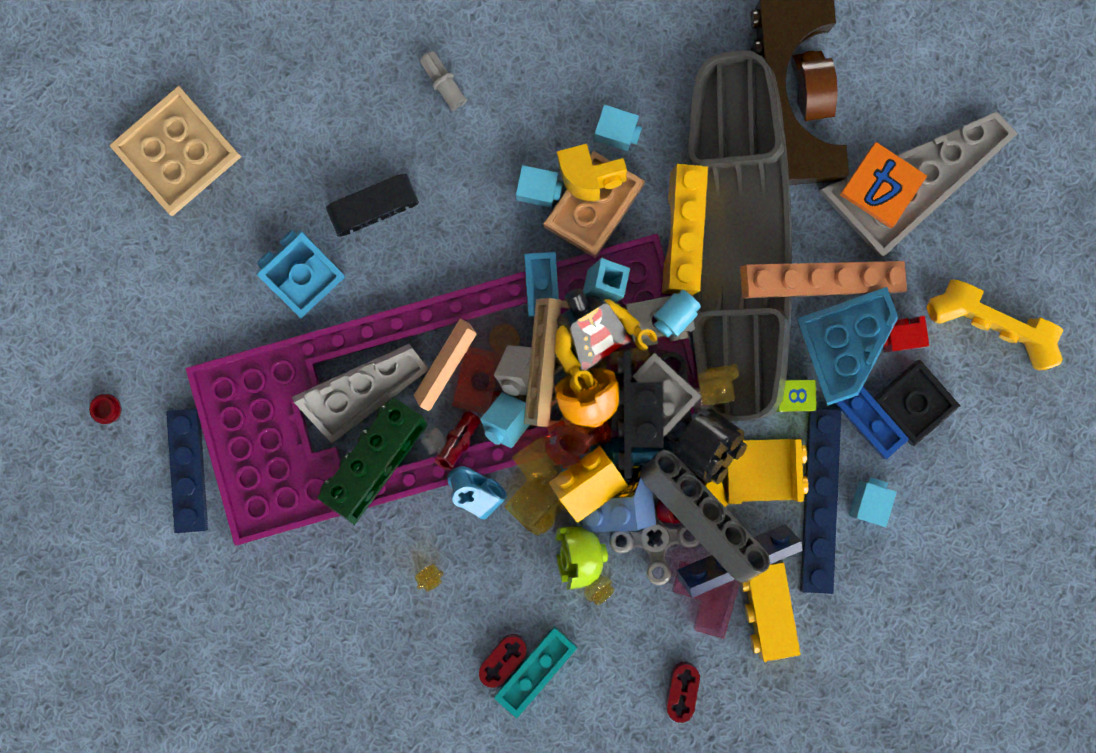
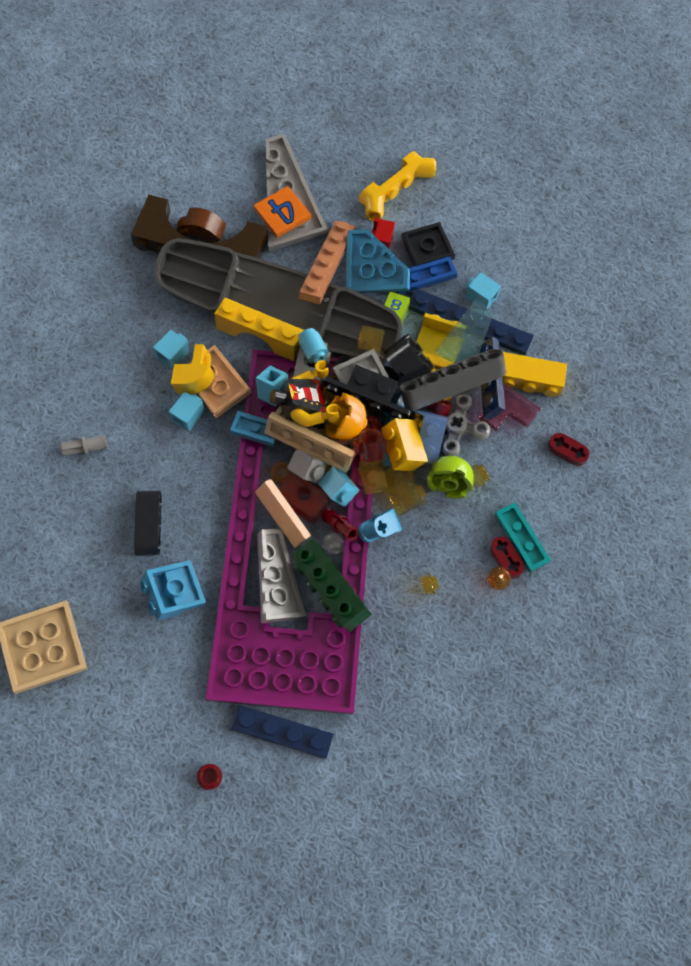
camera: 70 degrees left, 20 degrees down
(469, 660) = (499, 578): none -> clear orange plate
(783, 507) = (467, 334): none -> clear light blue wing

